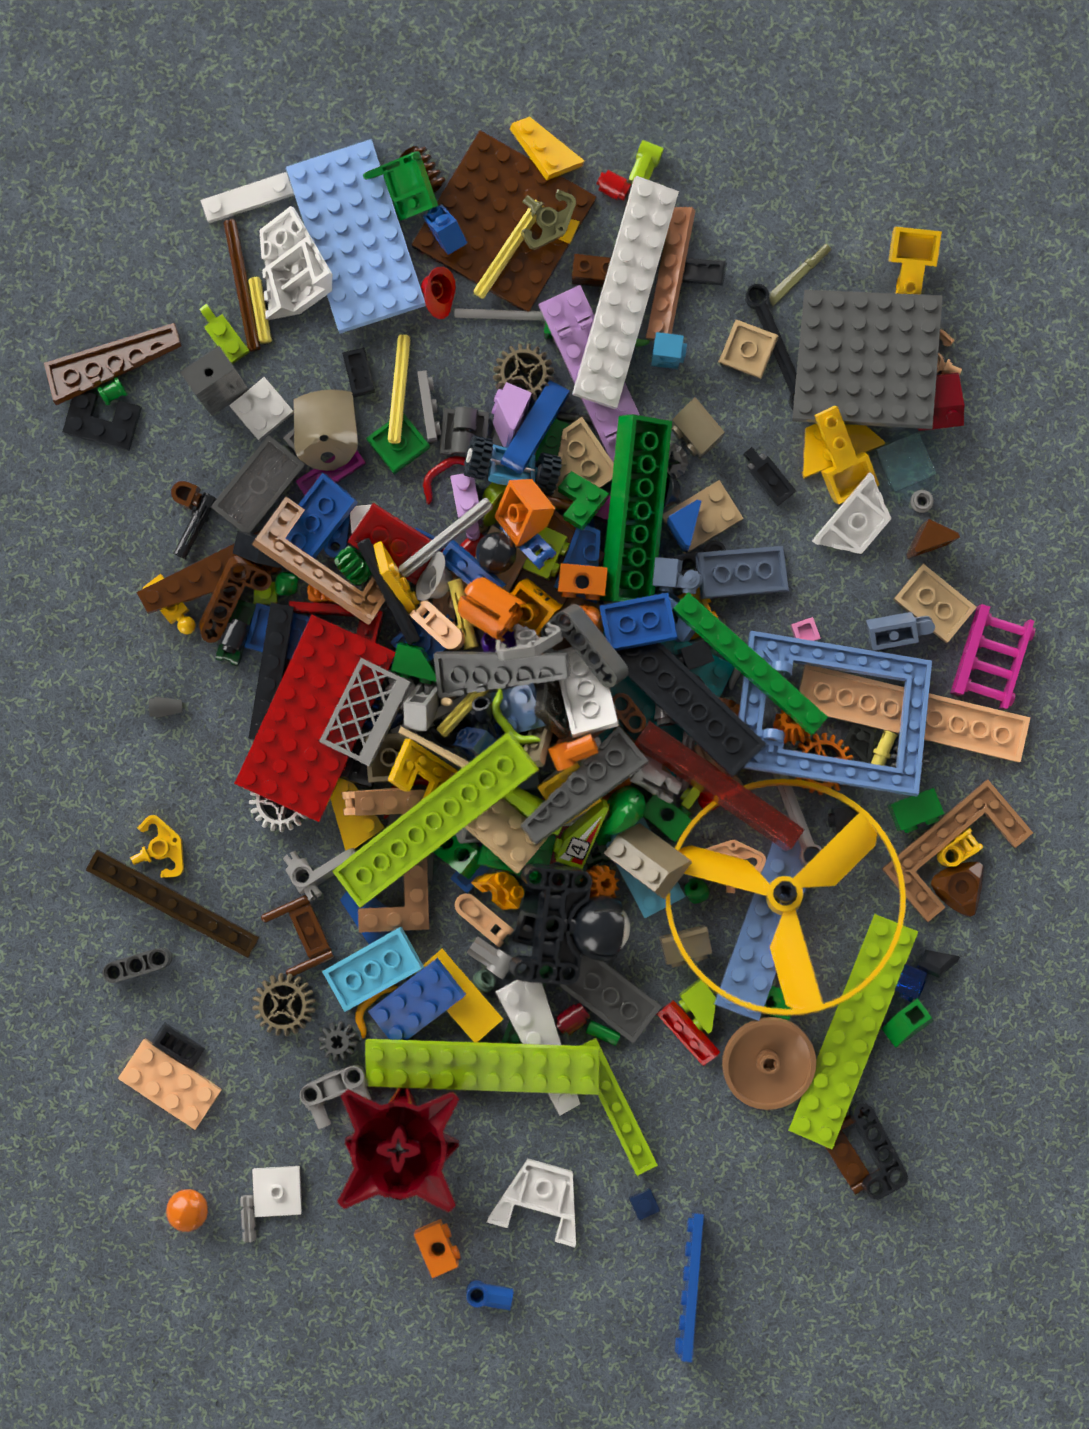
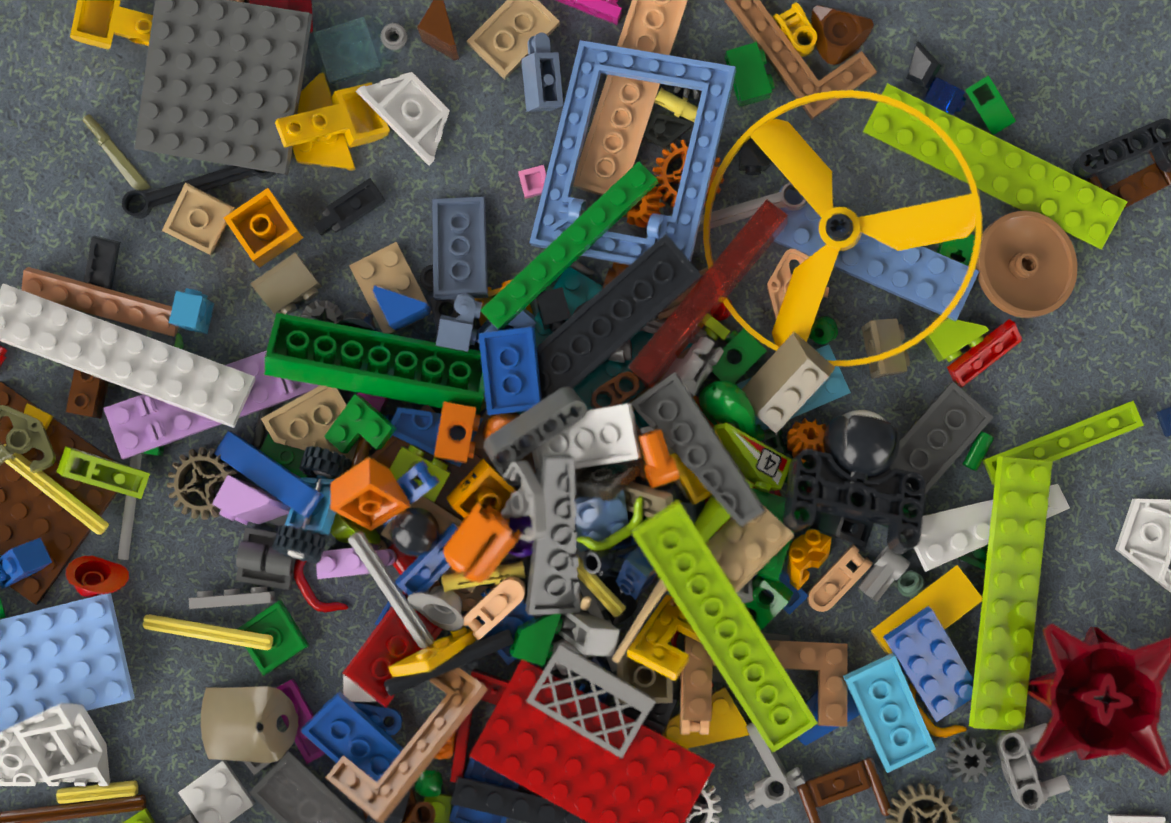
camera: 85 degrees left, 0 degrees up
(352, 565) = (414, 703): green gear -> none
(358, 372) = (183, 678): black plate -> none
(525, 289) = (102, 472): none -> lime slope
(572, 1018) = (960, 485): dark red brick -> none
(745, 404) = (263, 227): none -> light orange brick

